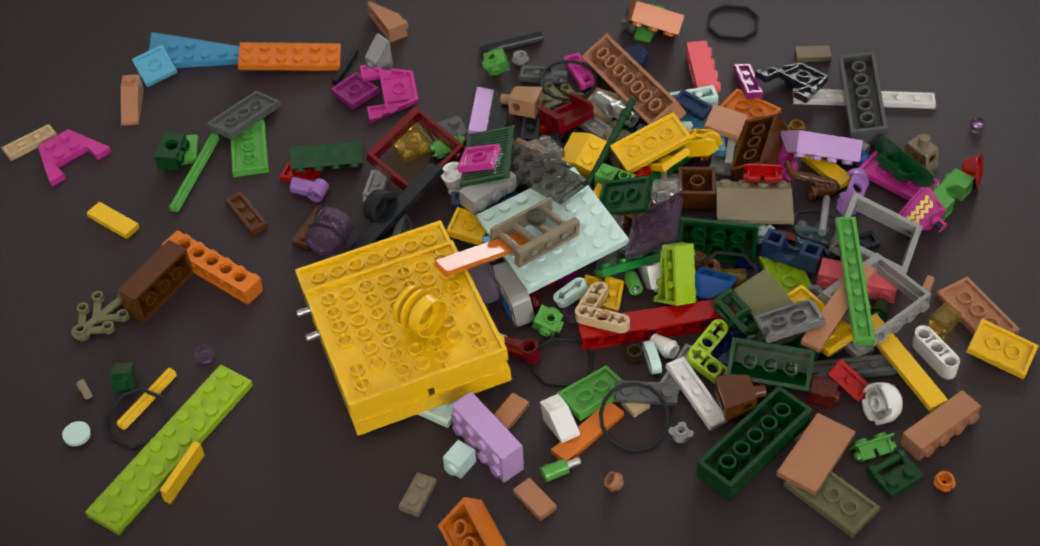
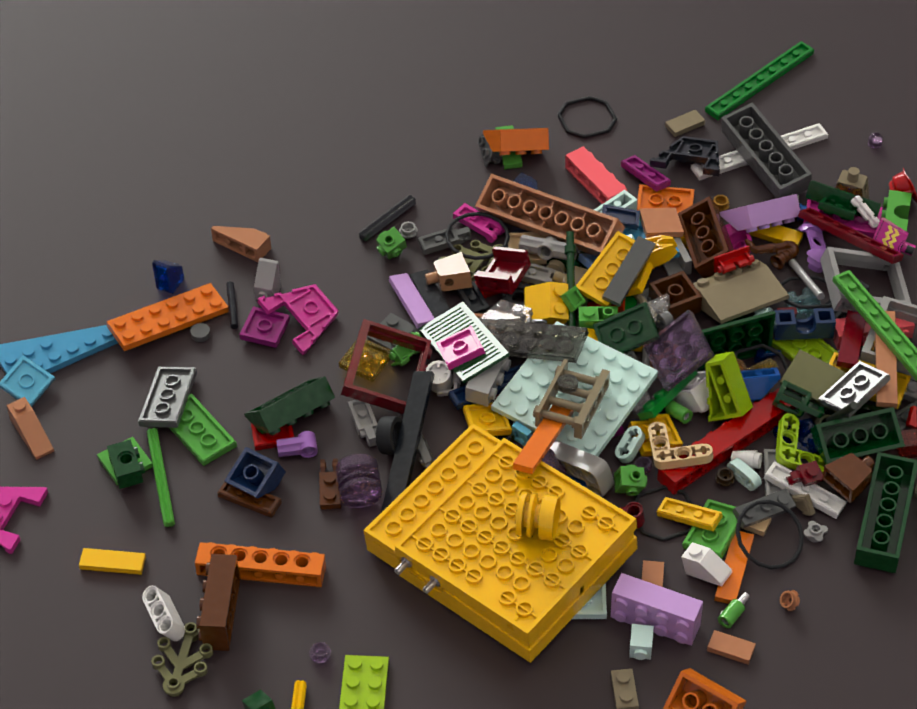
camera: 30 degrees left, 0 degrees up
(112, 273) = (163, 613): none -> white beam
(258, 196) = (255, 473): none -> dark blue slope
(306, 77) = (200, 332): none -> dark grey tile
(311, 25) = (167, 275): none -> clear blue slope
(579, 371) = (689, 514): none -> yellow tile
(602, 154) = (573, 299): none -> bright green tile
(660, 148) = (628, 271): none -> dark grey tile
(687, 404) = (804, 503): none -> dark tan tile
(703, 378) = (806, 473): none -> dark red plate
(820, 281) = (851, 340): none -> dark red tile
(889, 193) = (850, 235): none -> dark red tile
(909, 40) = (759, 80): none -> green tile
(916, 174) = (865, 211): none -> white axle

